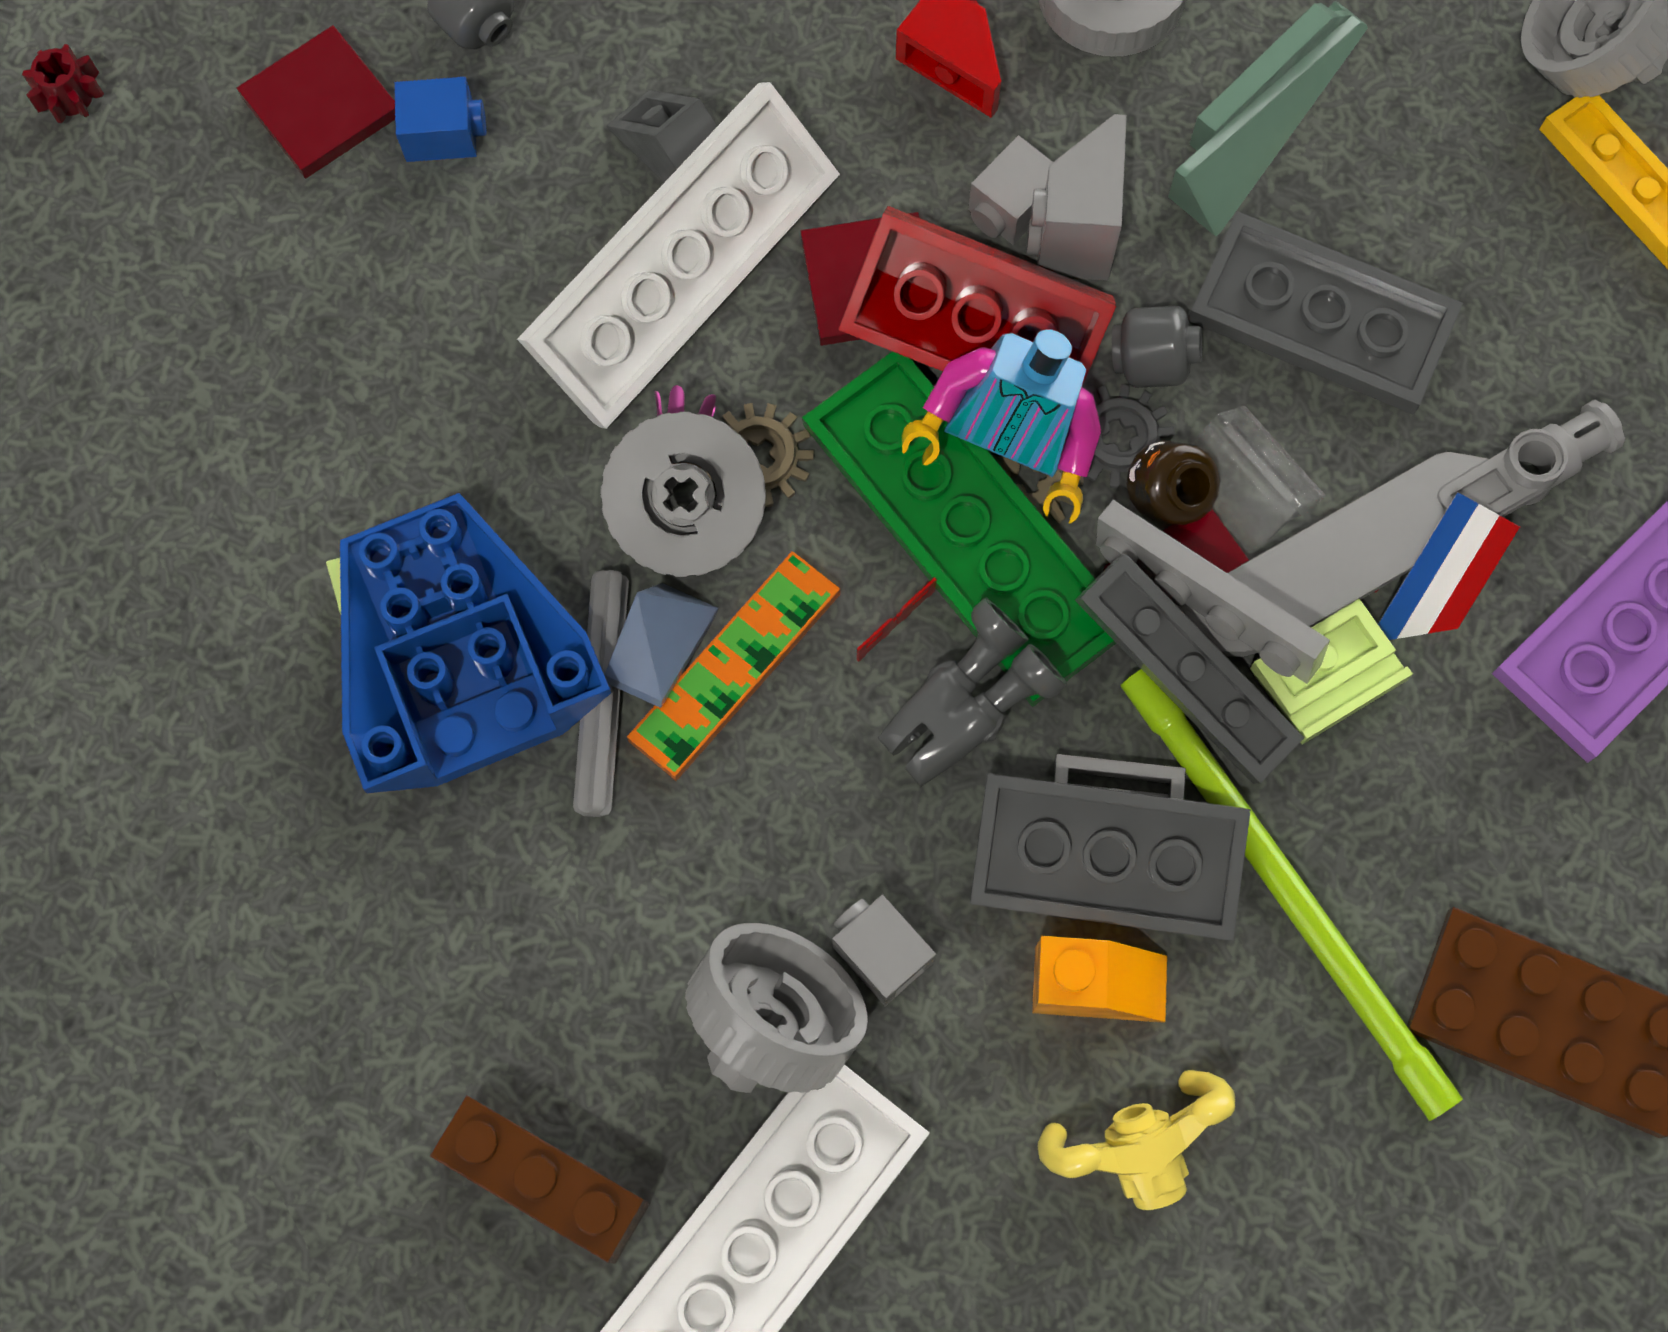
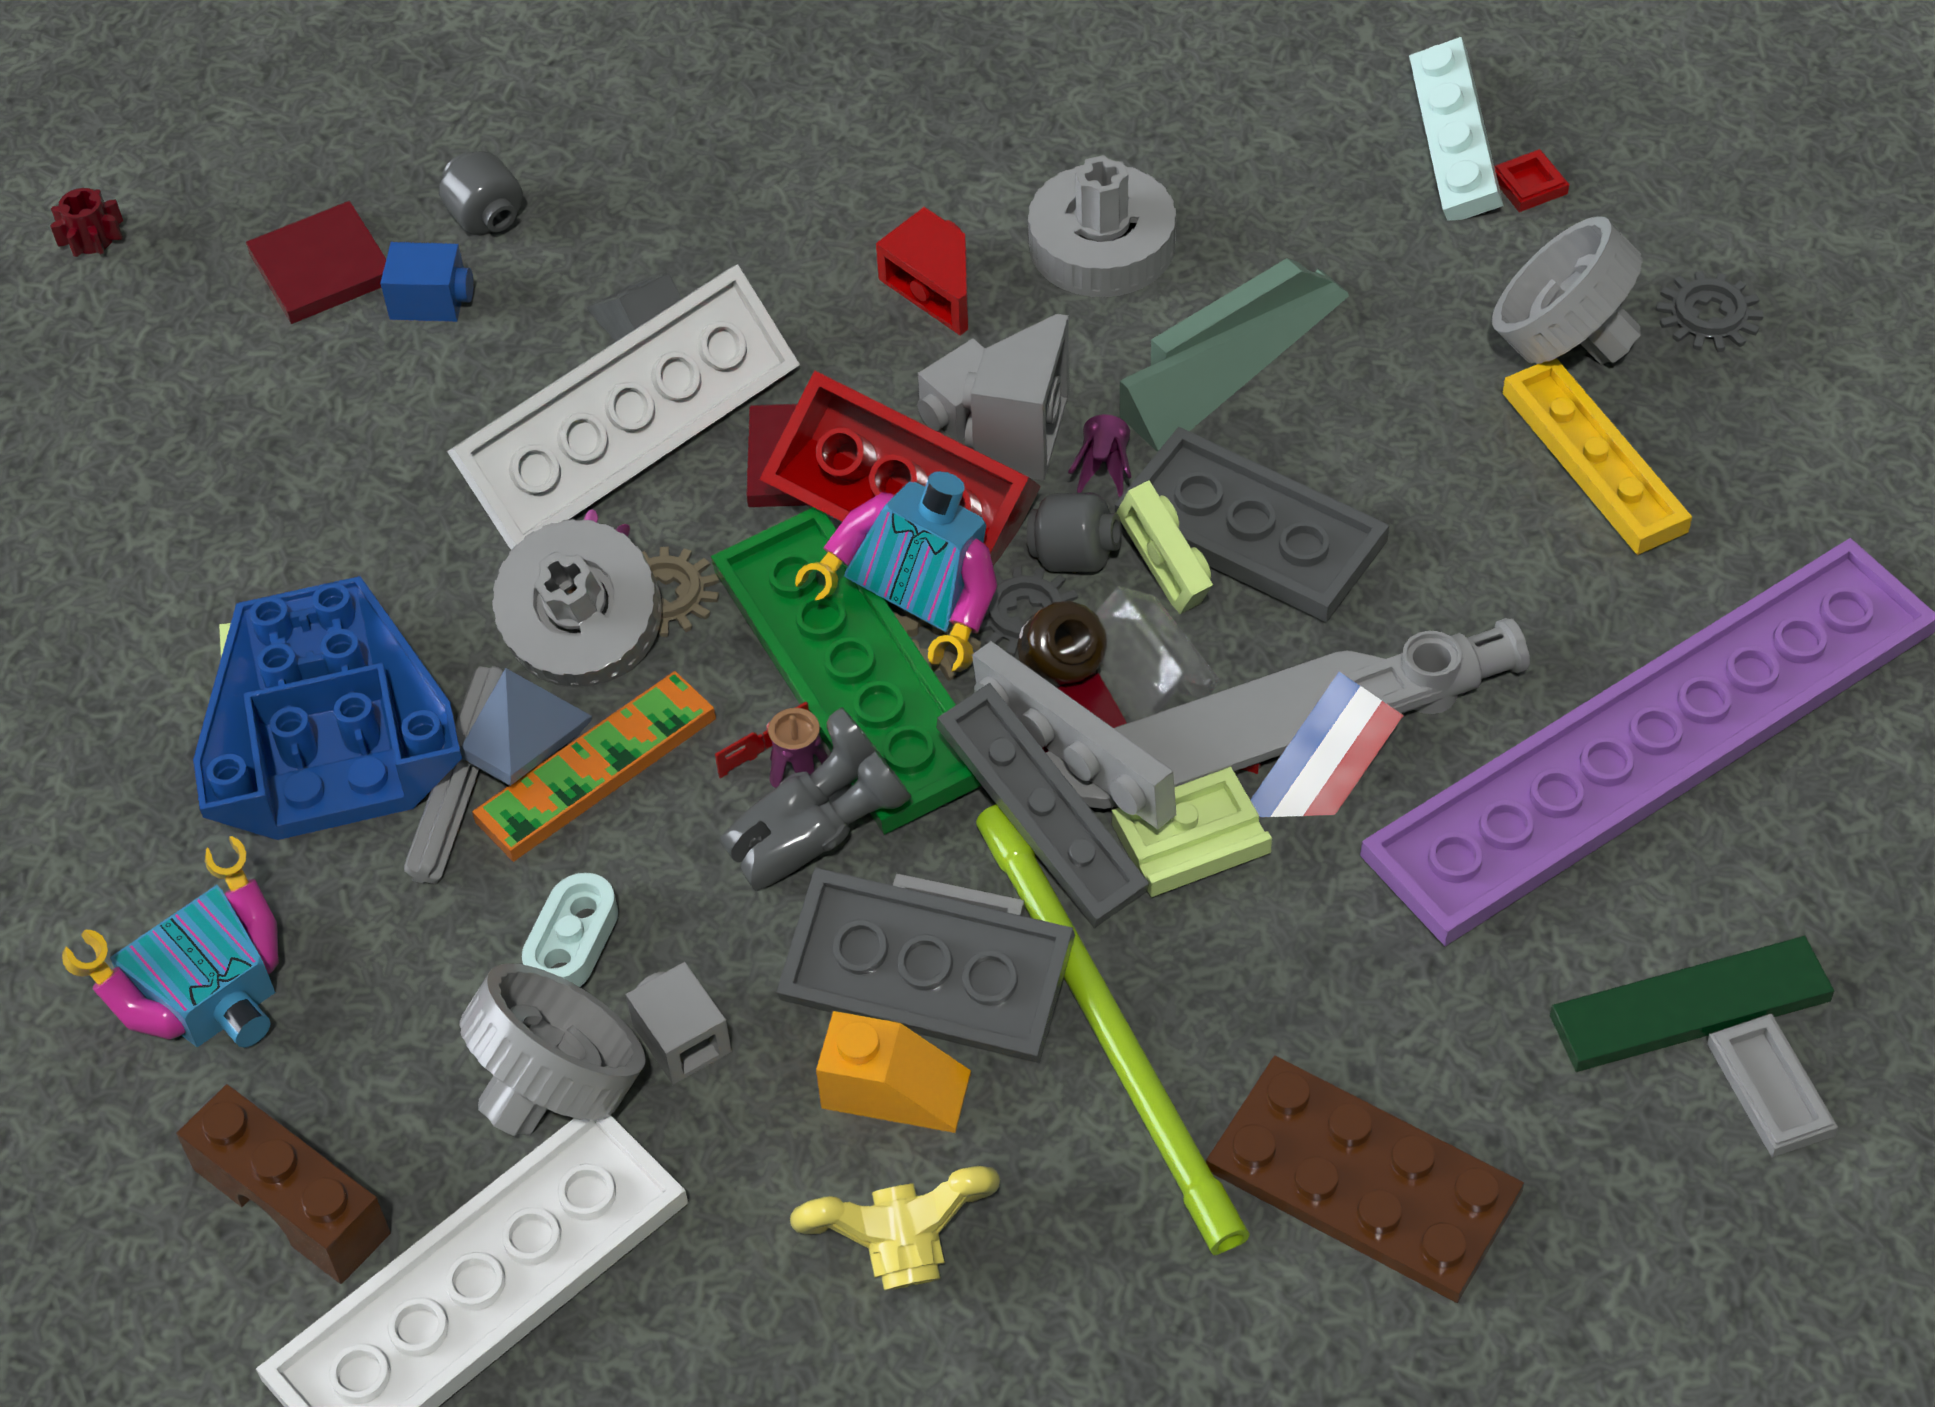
camera: 10 degrees right, 20 degrees down
(397, 952) = (197, 967): none -> torso
(754, 864) = (565, 937): none -> light aqua plate
(934, 626) = (795, 740): none -> piece
(1165, 232) = (1103, 442): none -> flat silver piece
(1265, 375) = (1155, 532): none -> yellowish green plate

